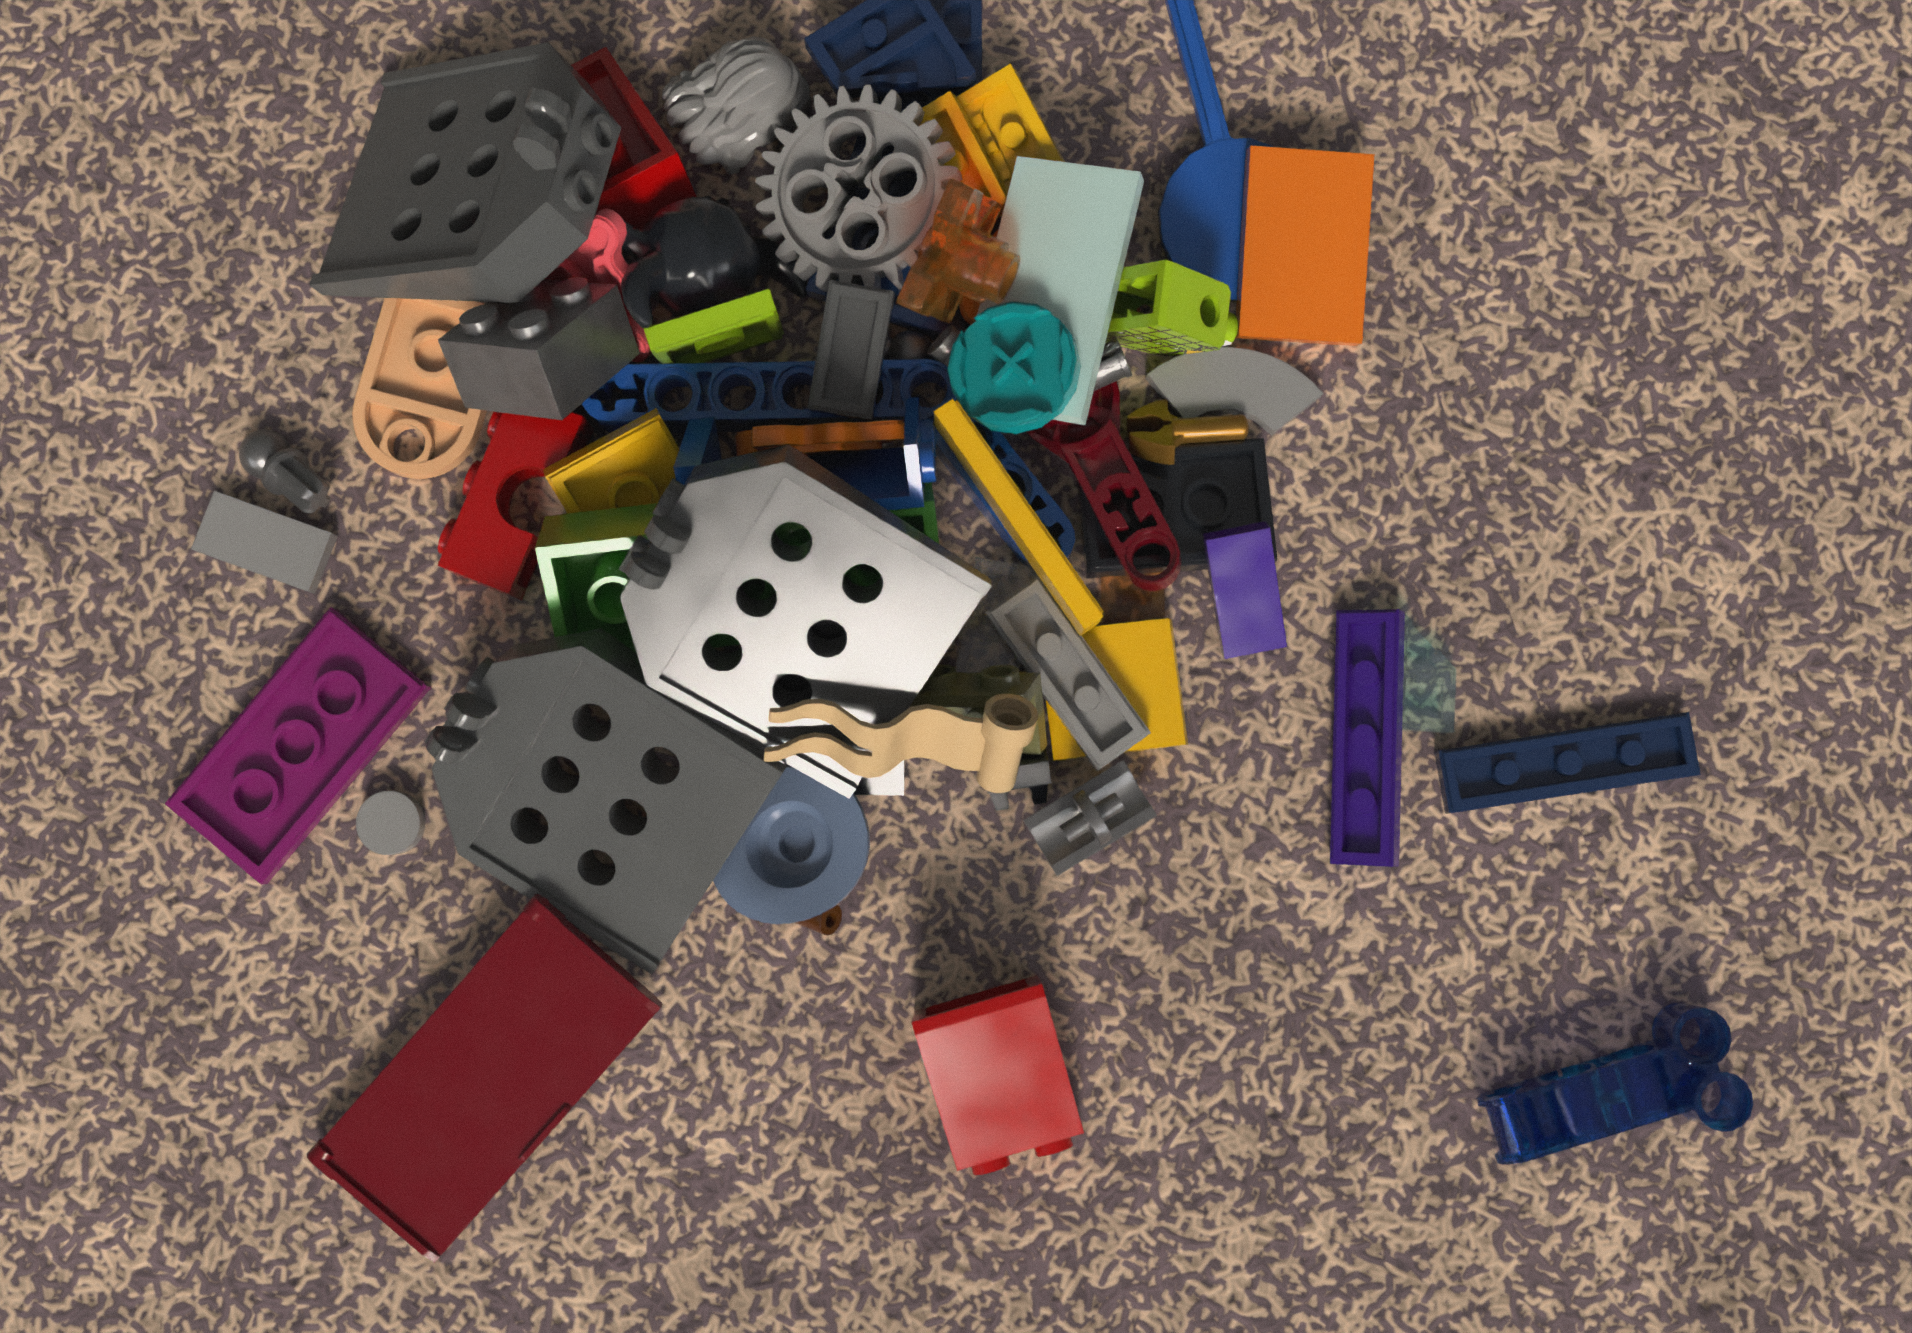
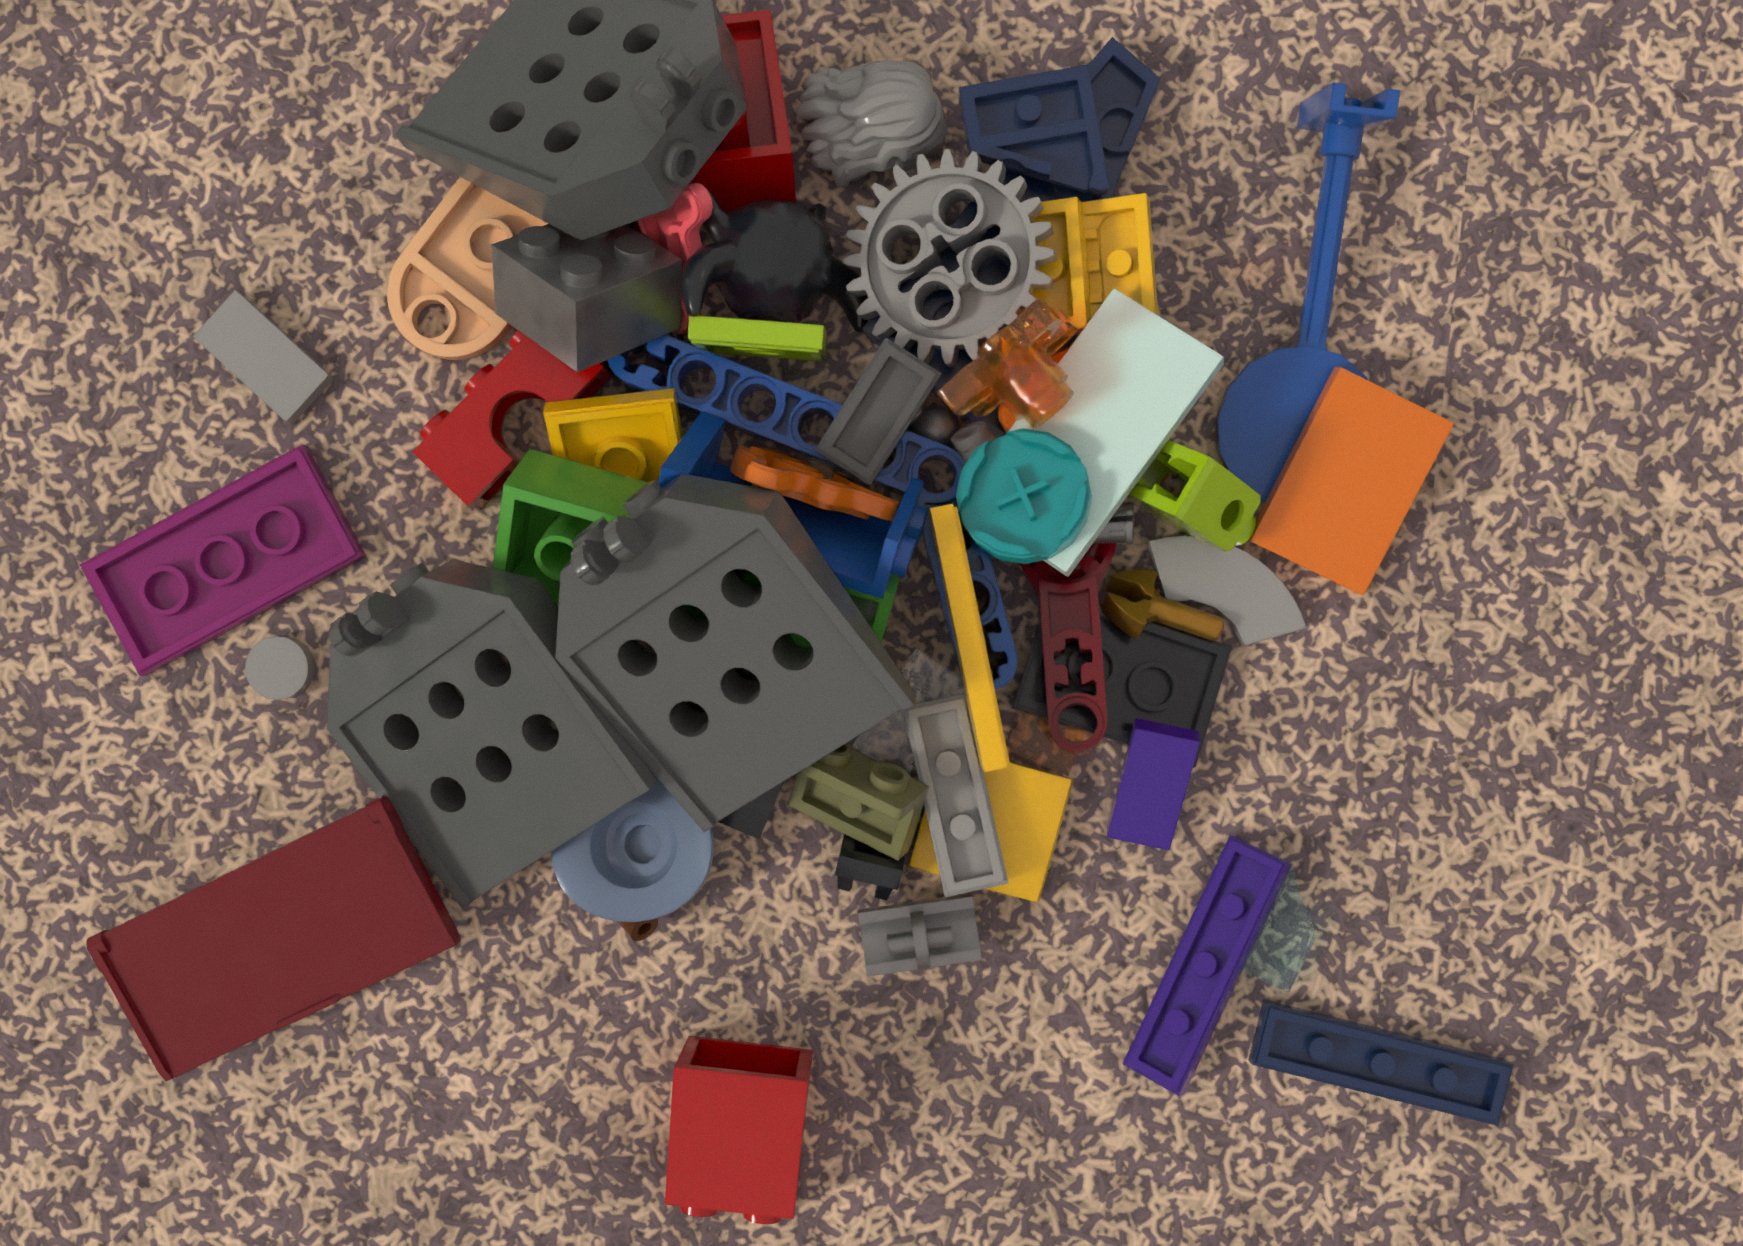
camera: 25 degrees right, 5 degrees up
(283, 470) = (307, 296): flat silver axle -> none
(927, 731) = (850, 841): tan flag -> none

